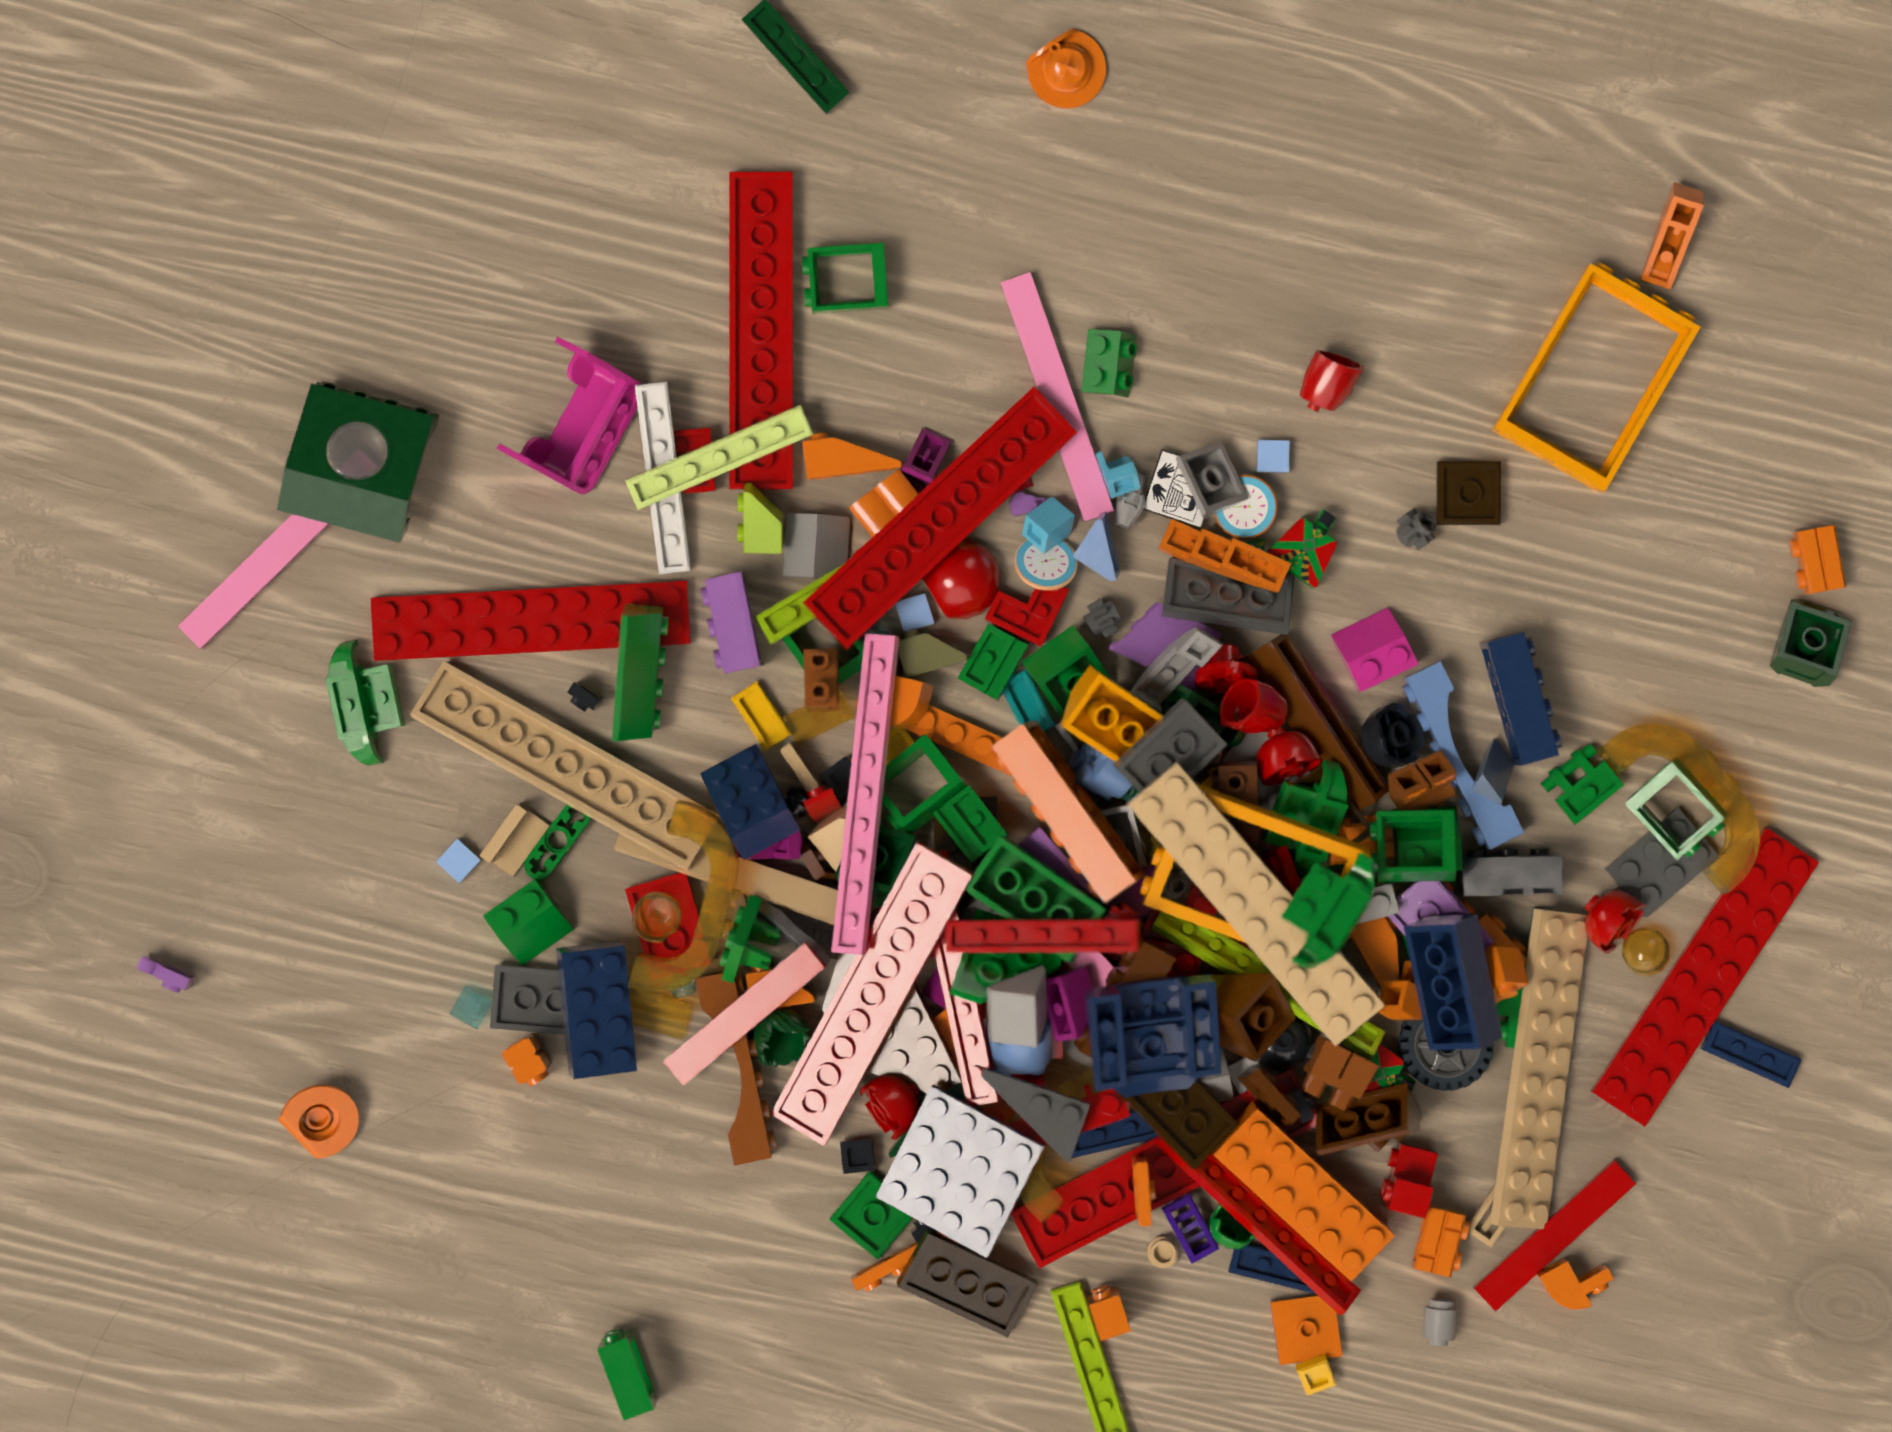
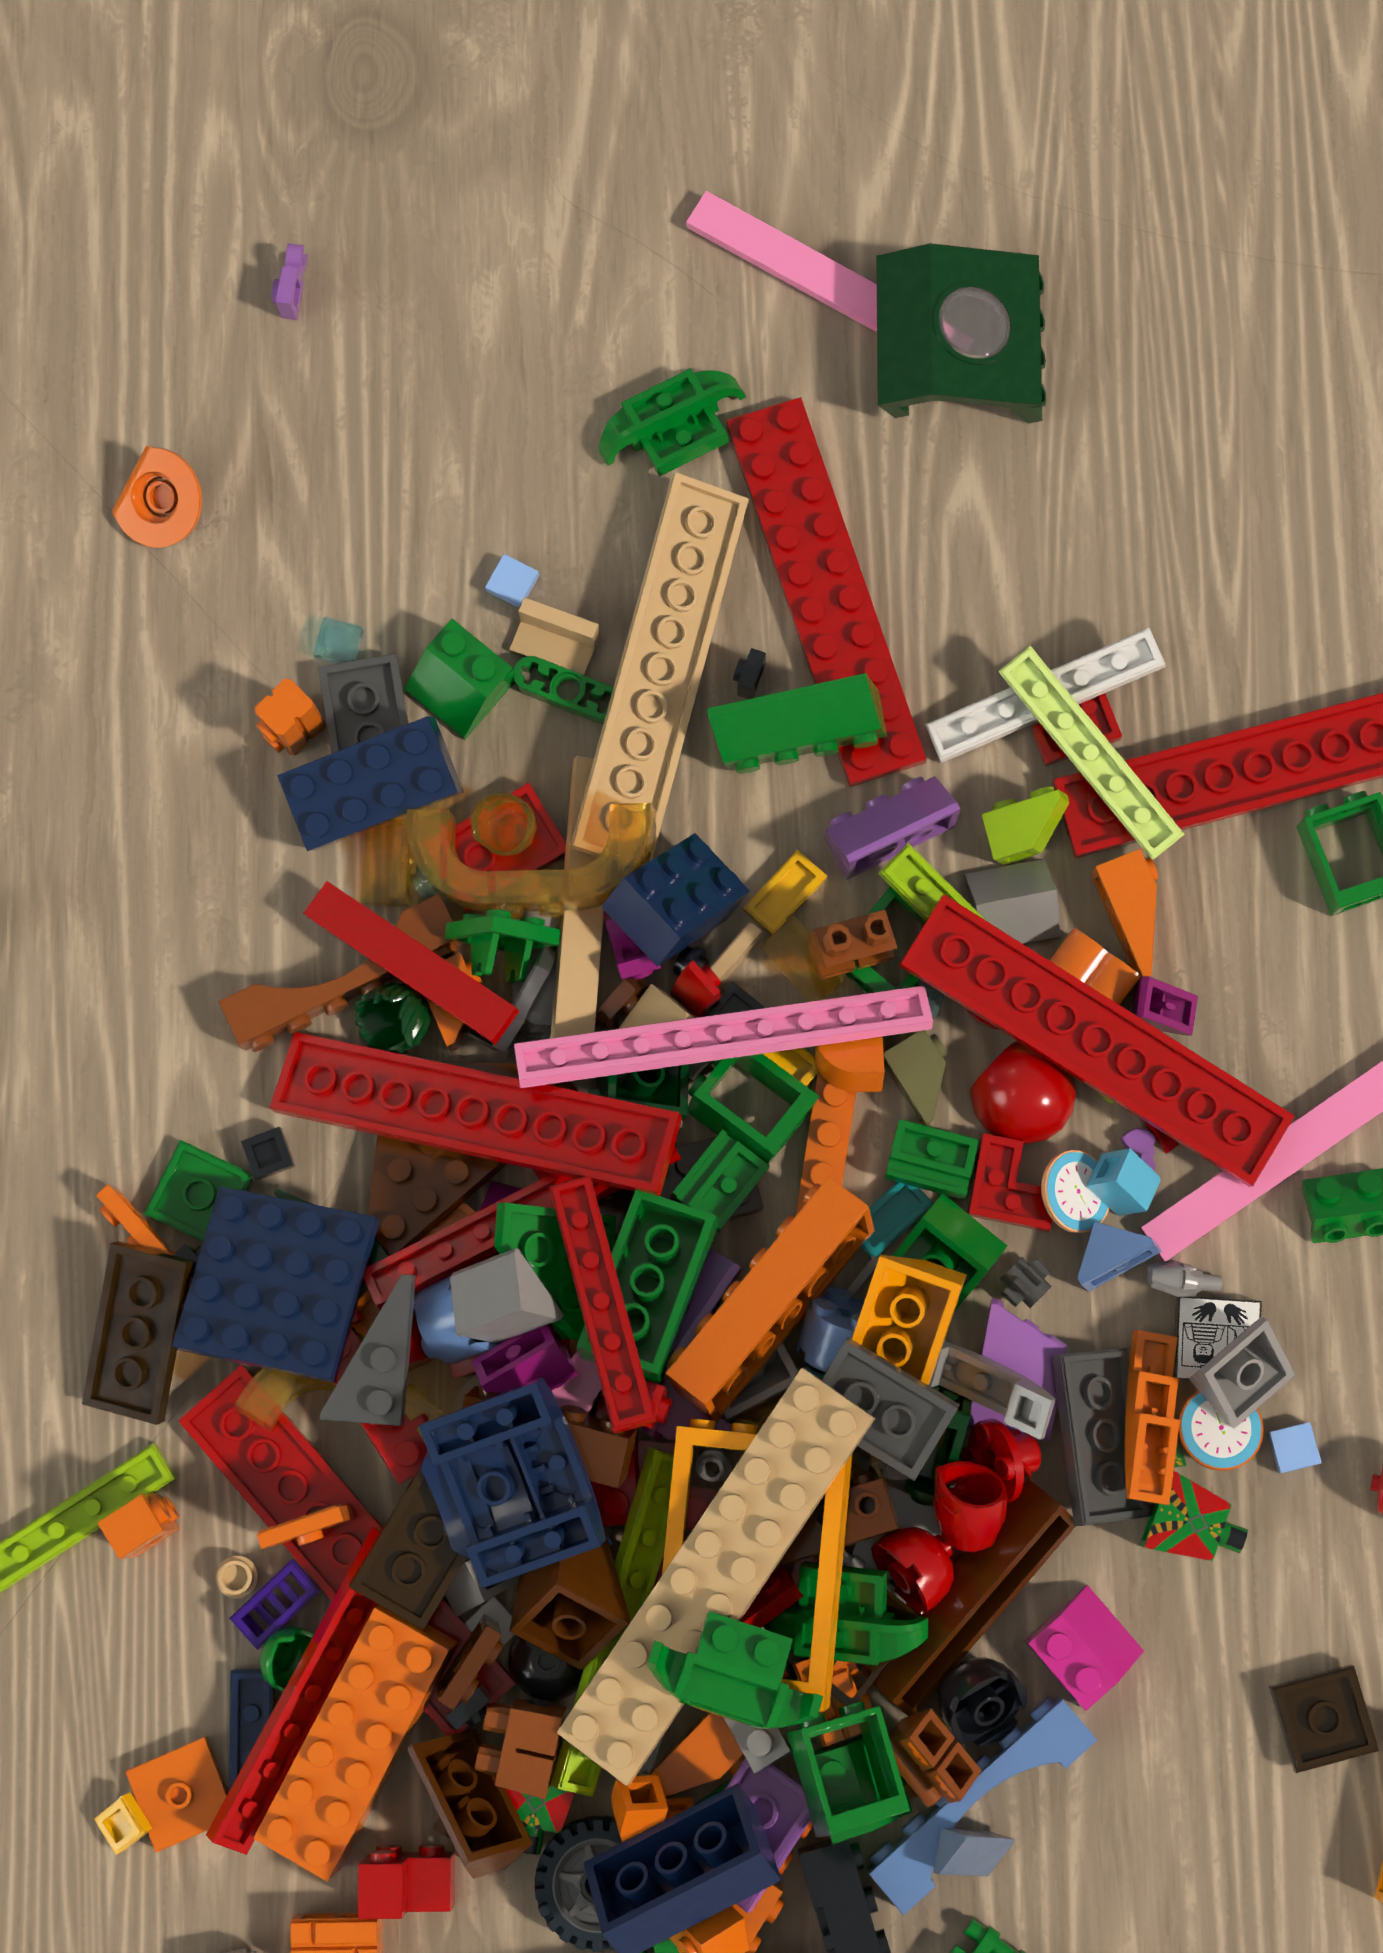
camera: 85 degrees right, 10 degrees down
(587, 427) = (1078, 595): dark pink windscreen -> none
(892, 1103) = (344, 1178): red cylinder -> none
(914, 612) = (966, 1046): light blue tile -> none
(1114, 1135) = (369, 1469): dark blue tile -> none
(1118, 475) = (1211, 1255): medium azure panel -> none
(1416, 529) = (1258, 1660): dark grey gear -> none
(1520, 699) = (1080, 1861): dark blue brick -> none

